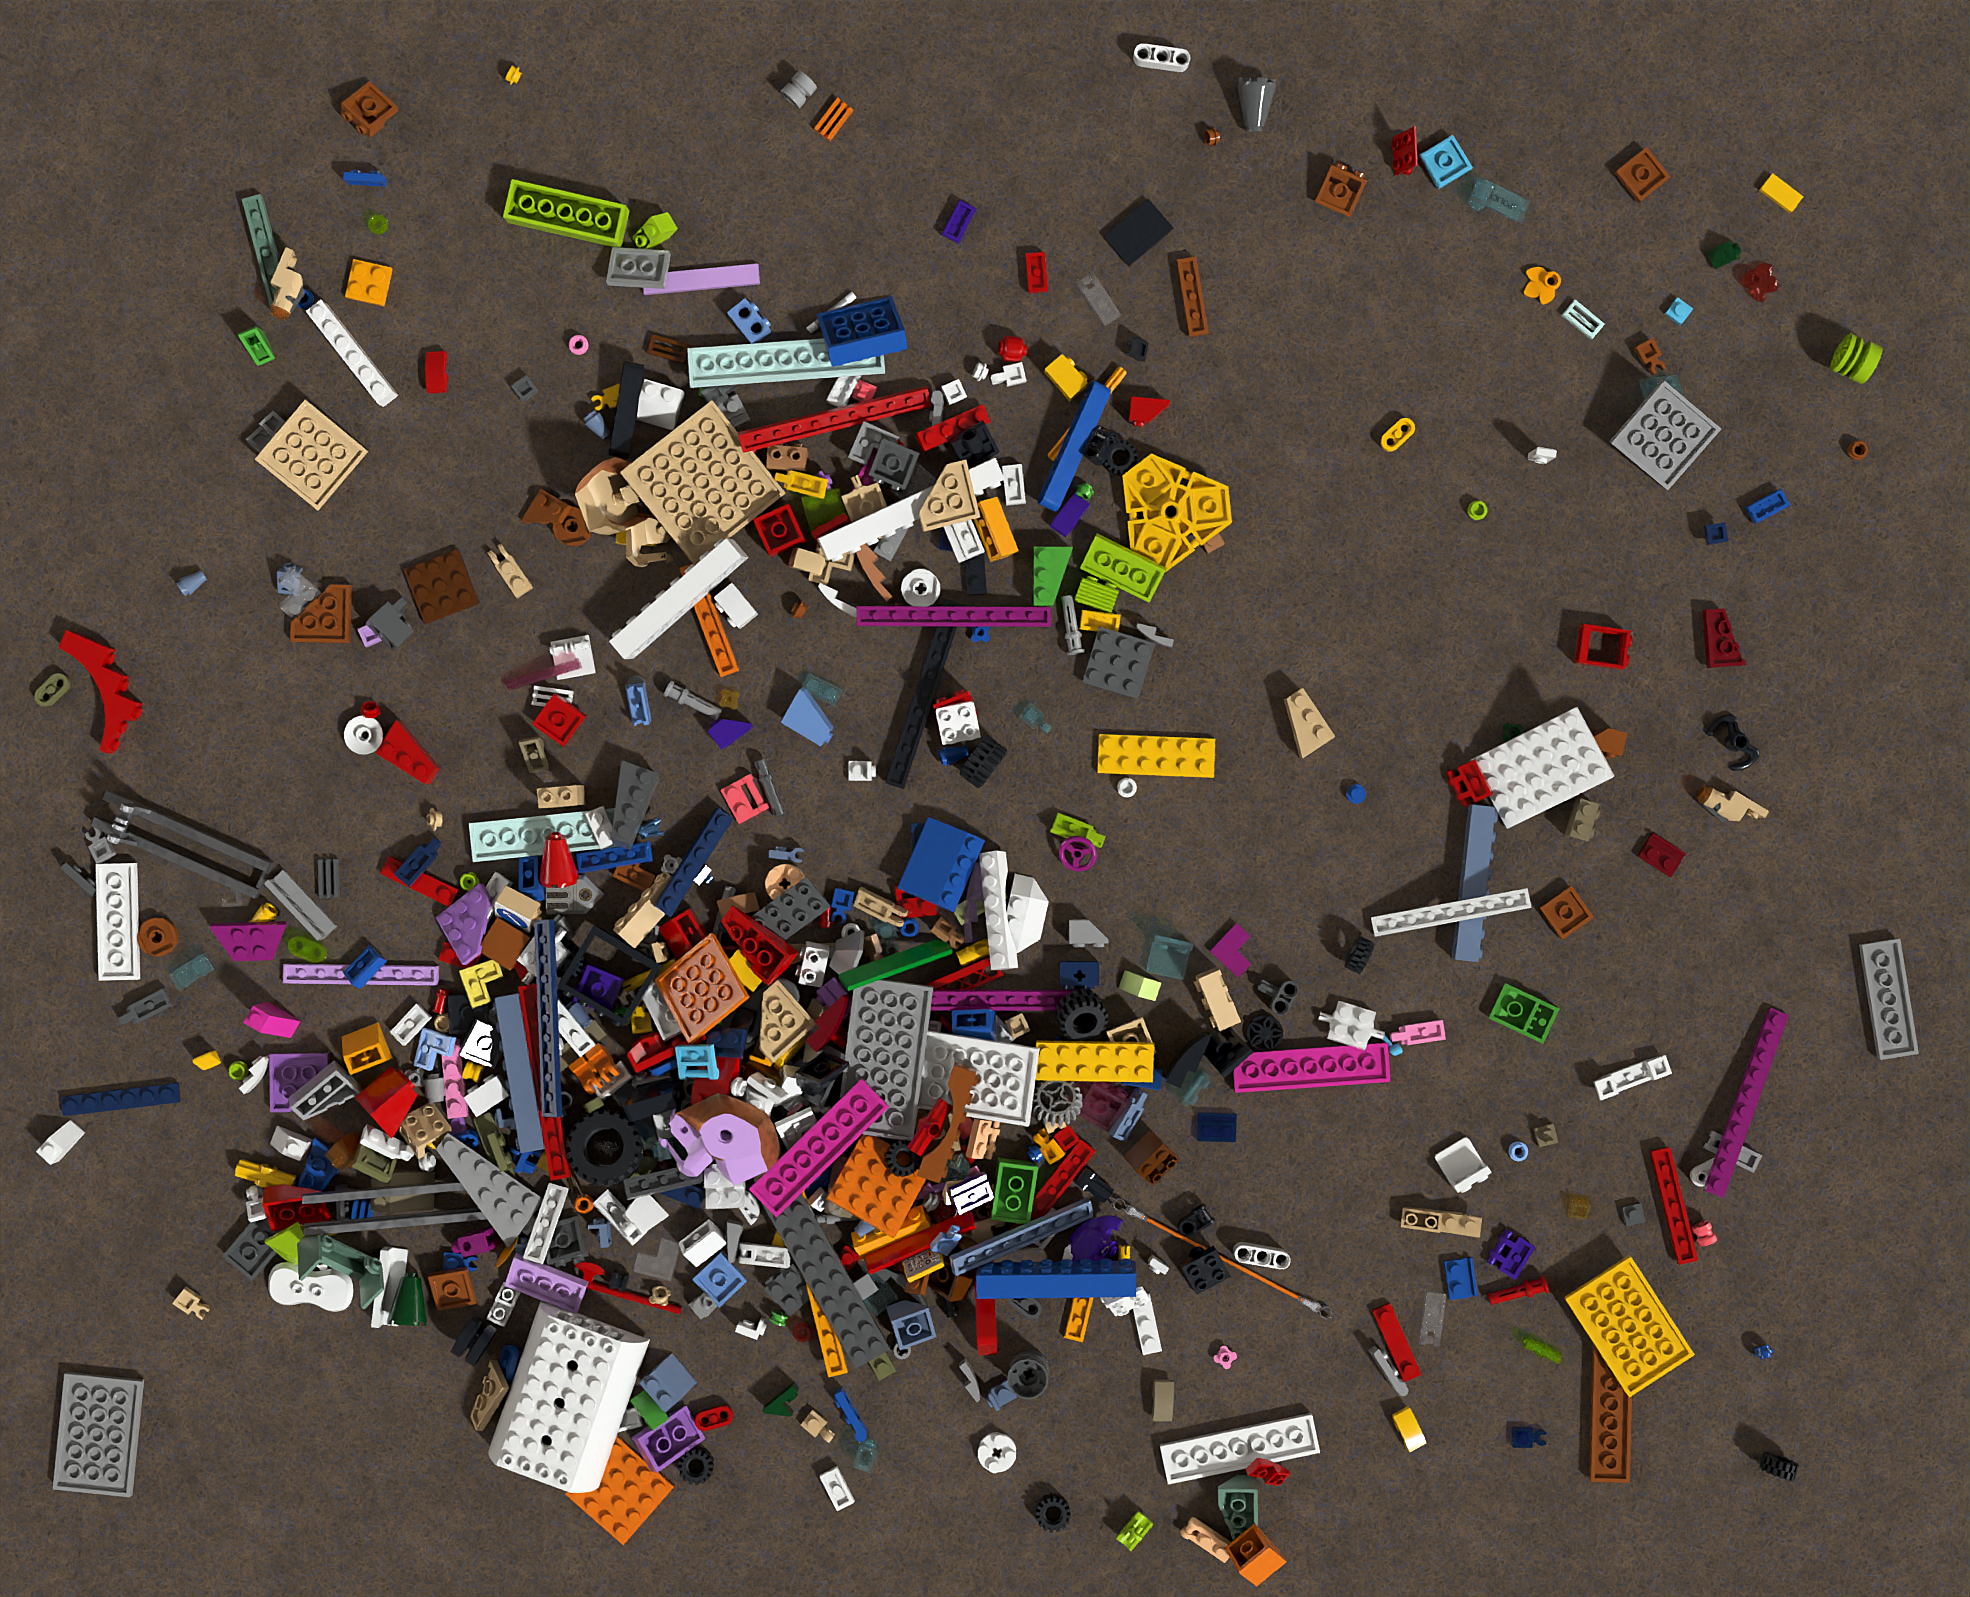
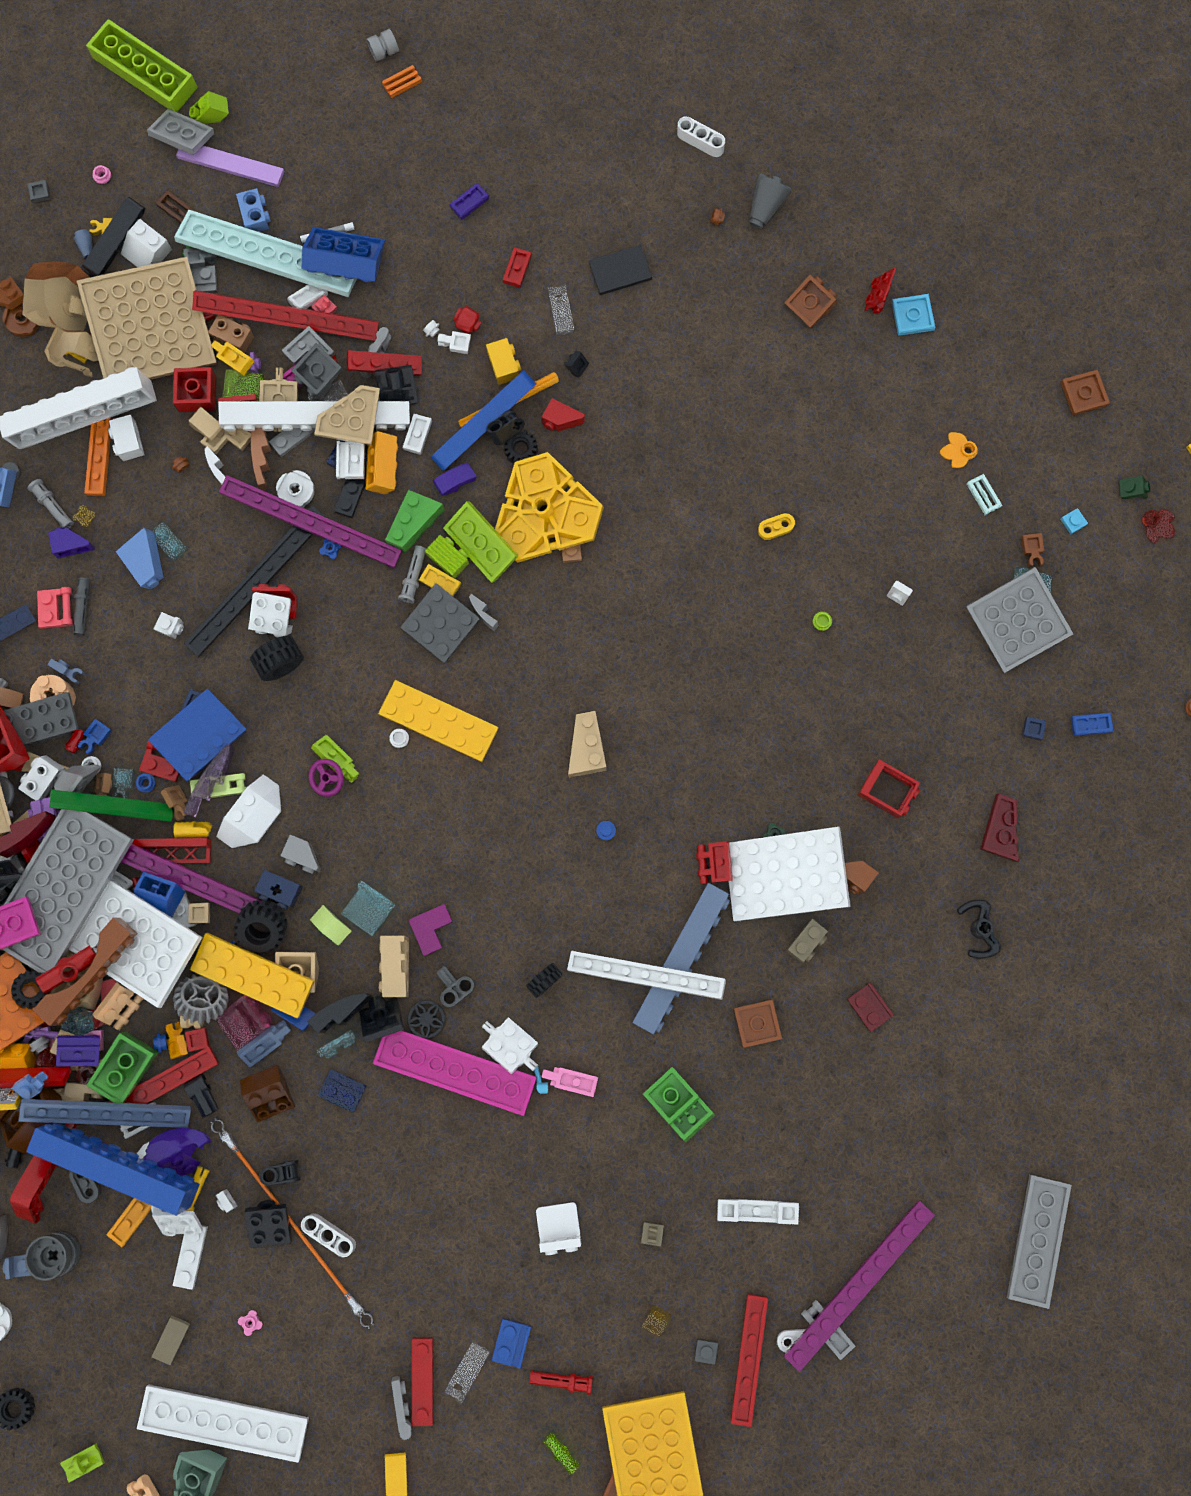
camera: 30 degrees right, 10 degrees down
(879, 907) = (126, 752): tan hinge -> none
(952, 755) = (251, 643): blue cone -> none
(953, 392) = (400, 336): white plate -> none
(1000, 941) = (215, 830): white arch -> none
(1033, 717) = (343, 642): clear light blue plate -> none
(1084, 491) = (477, 464): bright green plate -> none
(1192, 297) = (643, 339): dark orange plate -> none
(1270, 1472) = (242, 1461): red slope -> none
(1441, 1221) = (514, 1276): tan slope -> none
(1490, 195) = (950, 365): clear light blue door -> none
(1515, 1258) = (574, 1344): dark purple plate -> none
(1524, 1151) = (619, 1245): light blue plate -> none
(1704, 1234) = (768, 1401): coral wheel -> none
(1730, 806) = (952, 988): tan plate -> none

